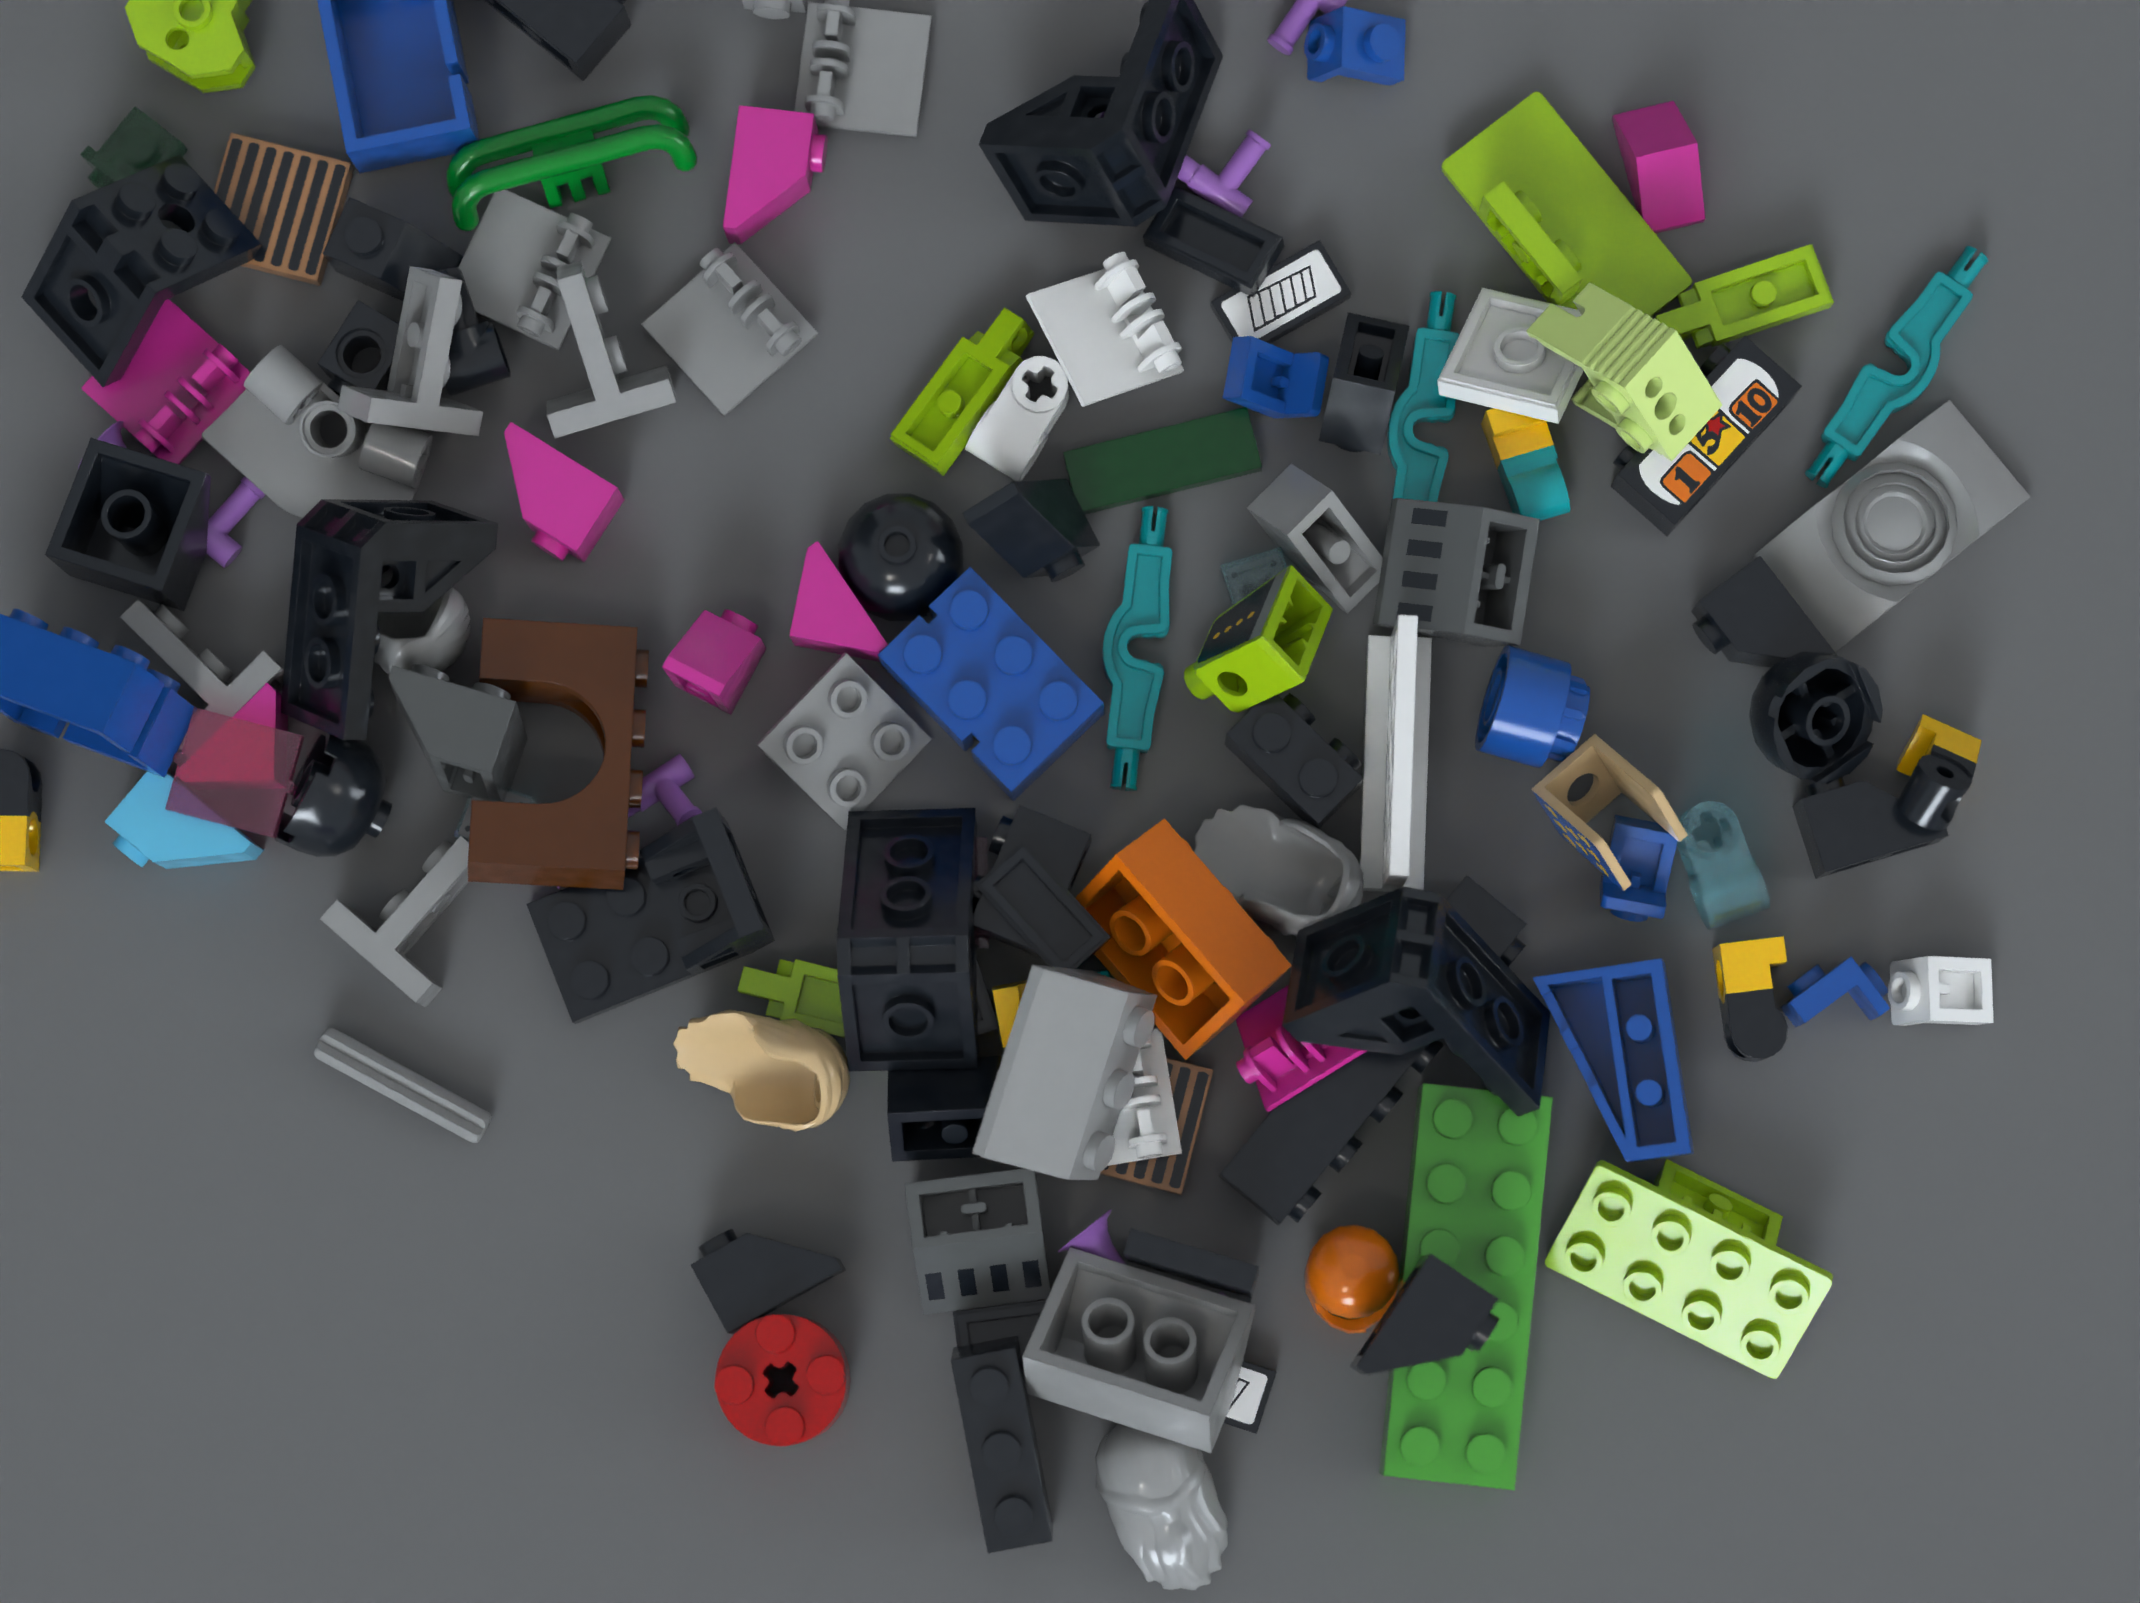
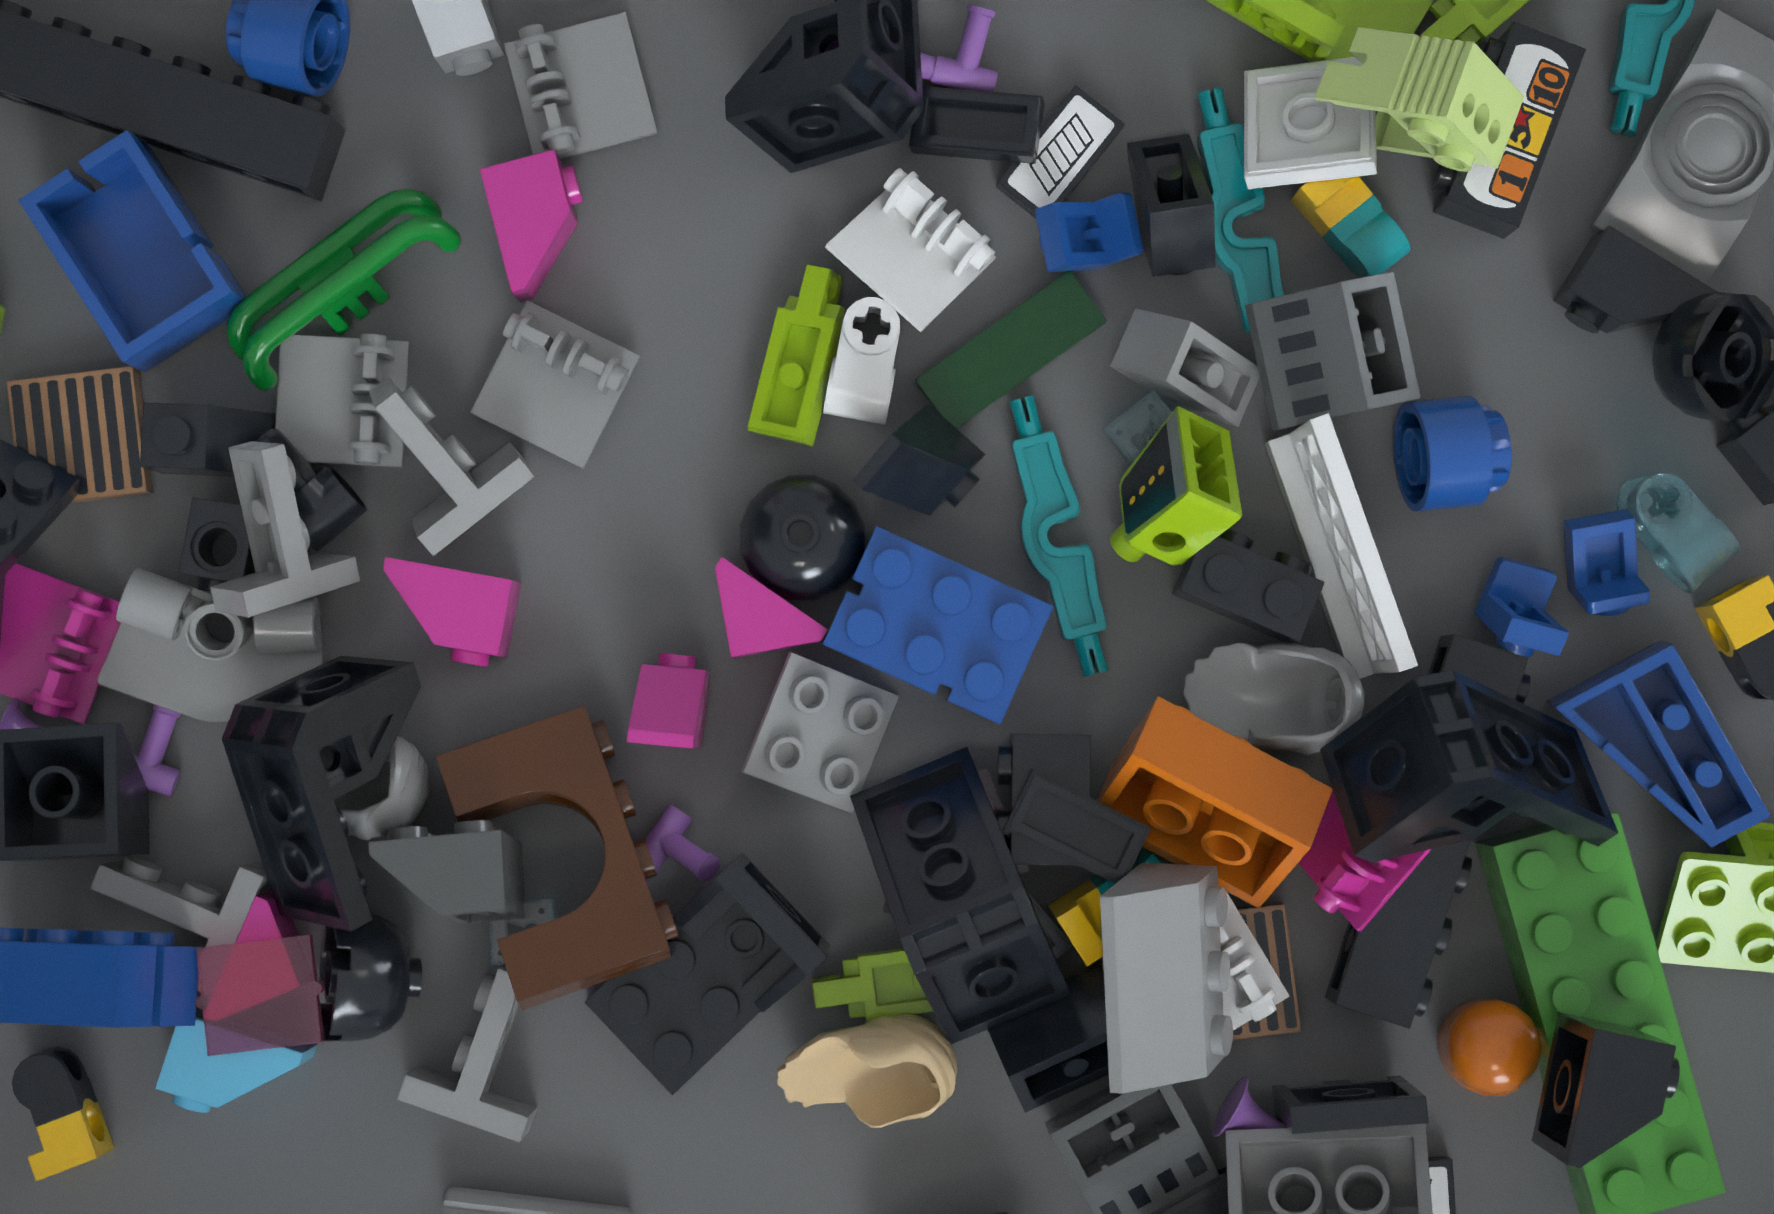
camera: 25 degrees left, 5 degrees up
(1540, 876) = (1515, 606): none -> blue bracket
(1610, 778) = (1543, 485): tan piece -> none

